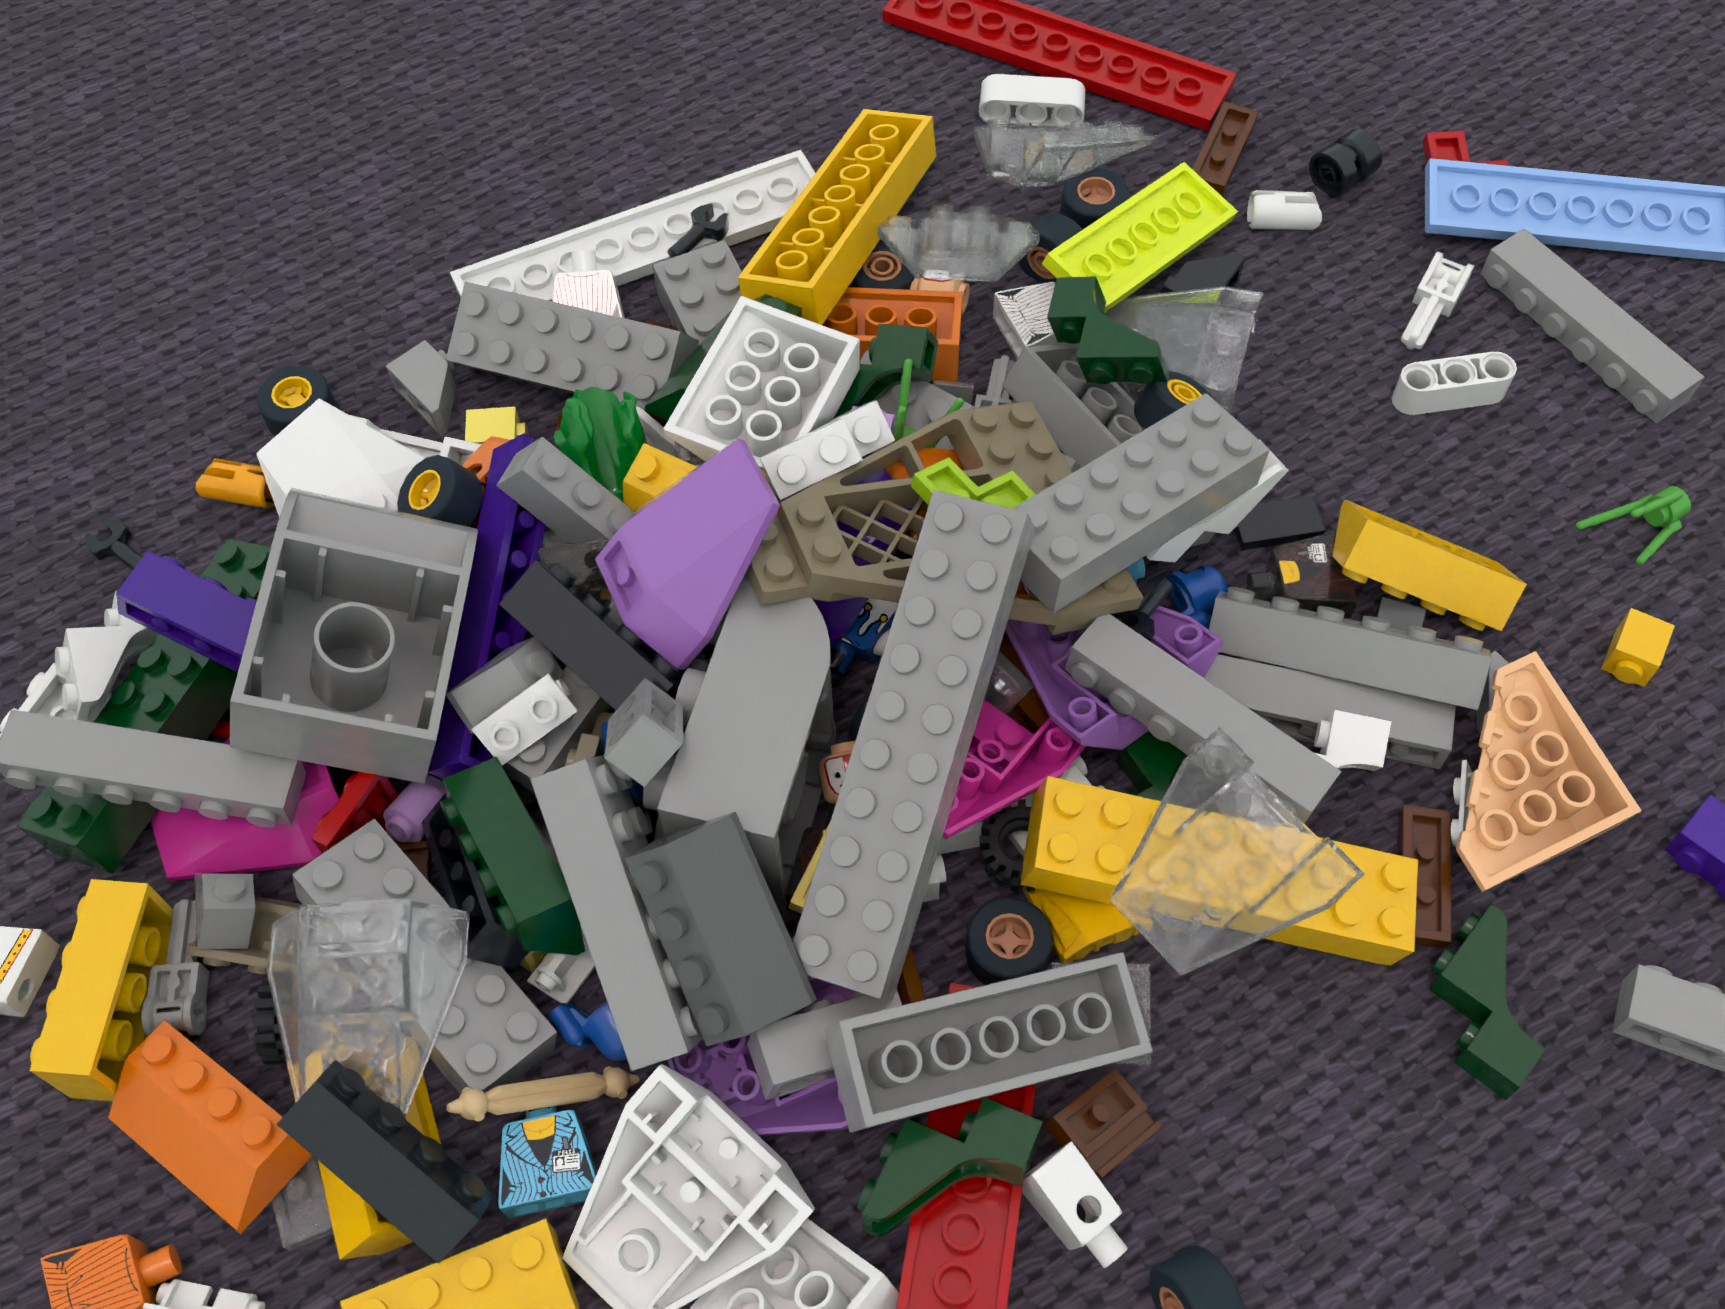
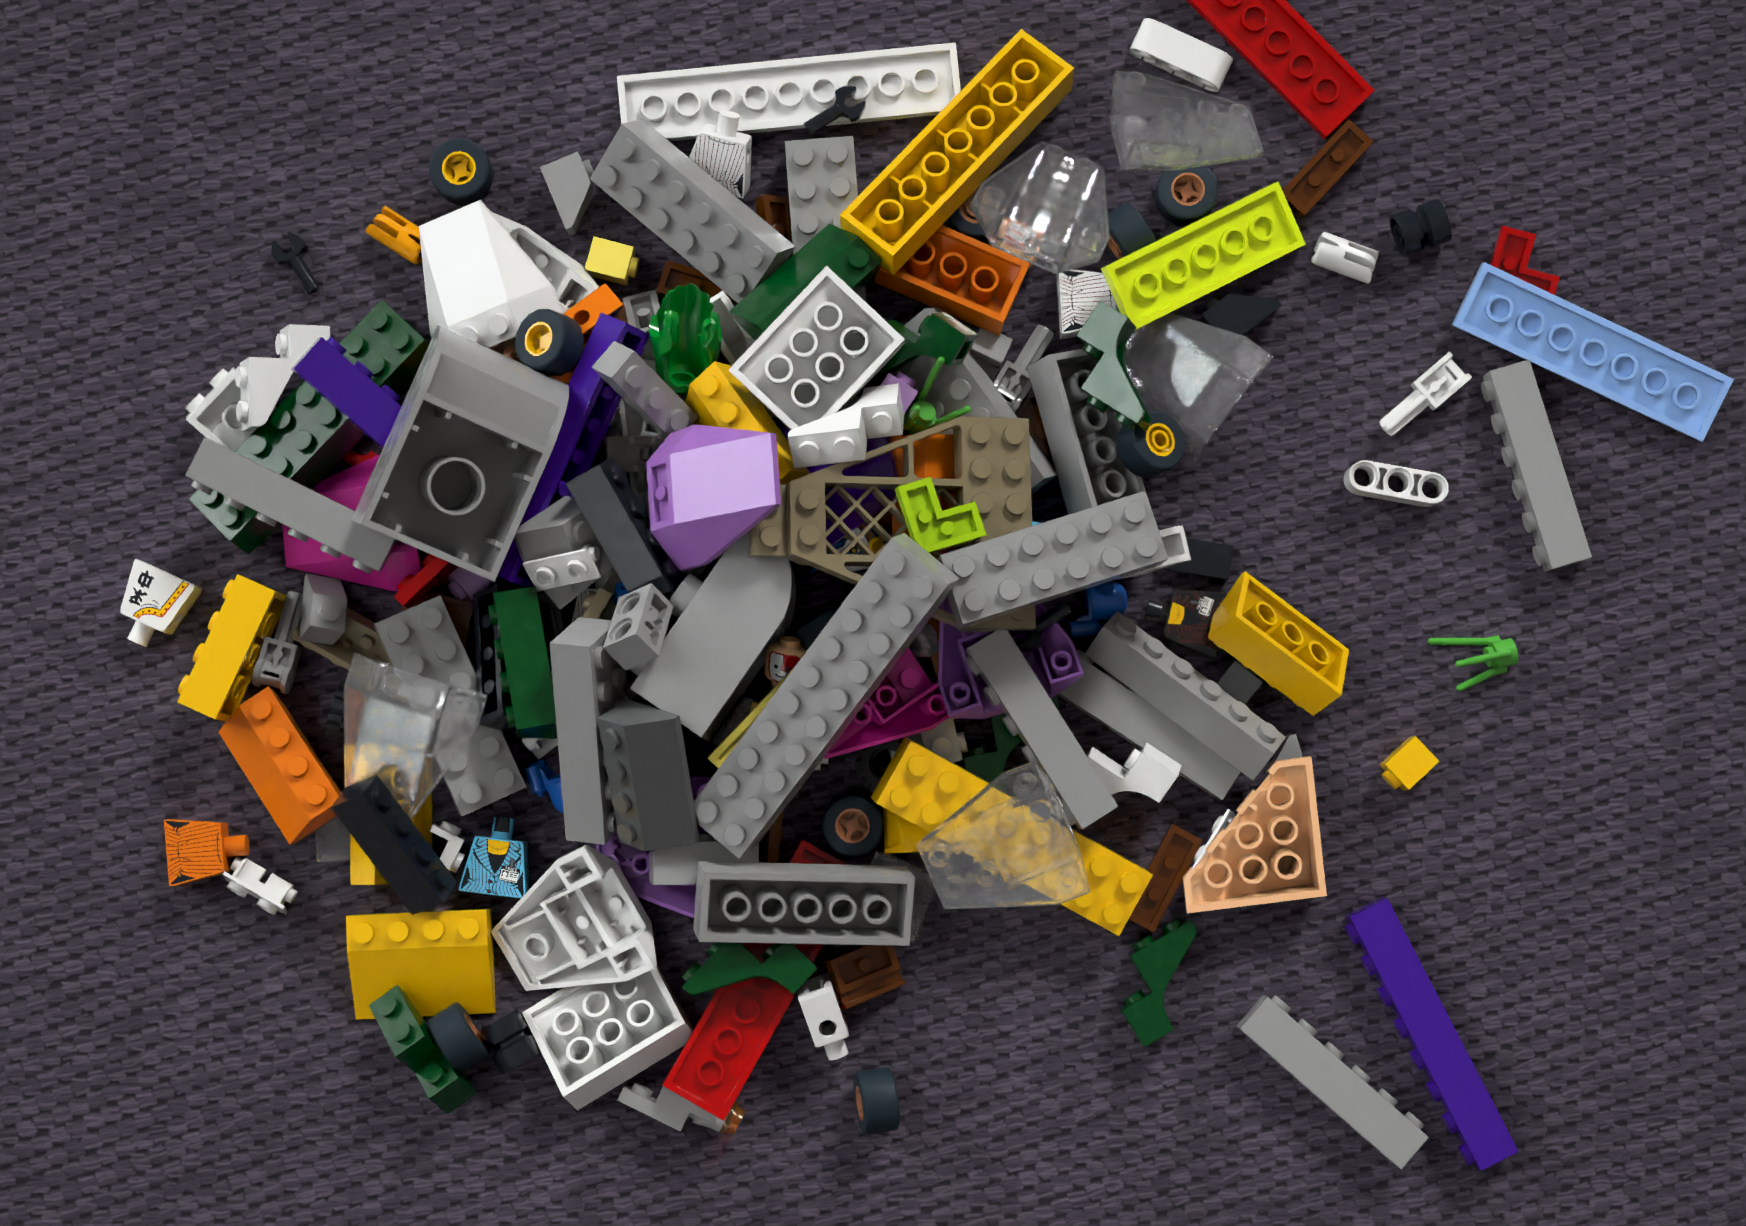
camera: 20 degrees right, 25 degrees up
(476, 1149) = (451, 856): none -> white bracket
(542, 1093) = (505, 825): tan wheel -> none

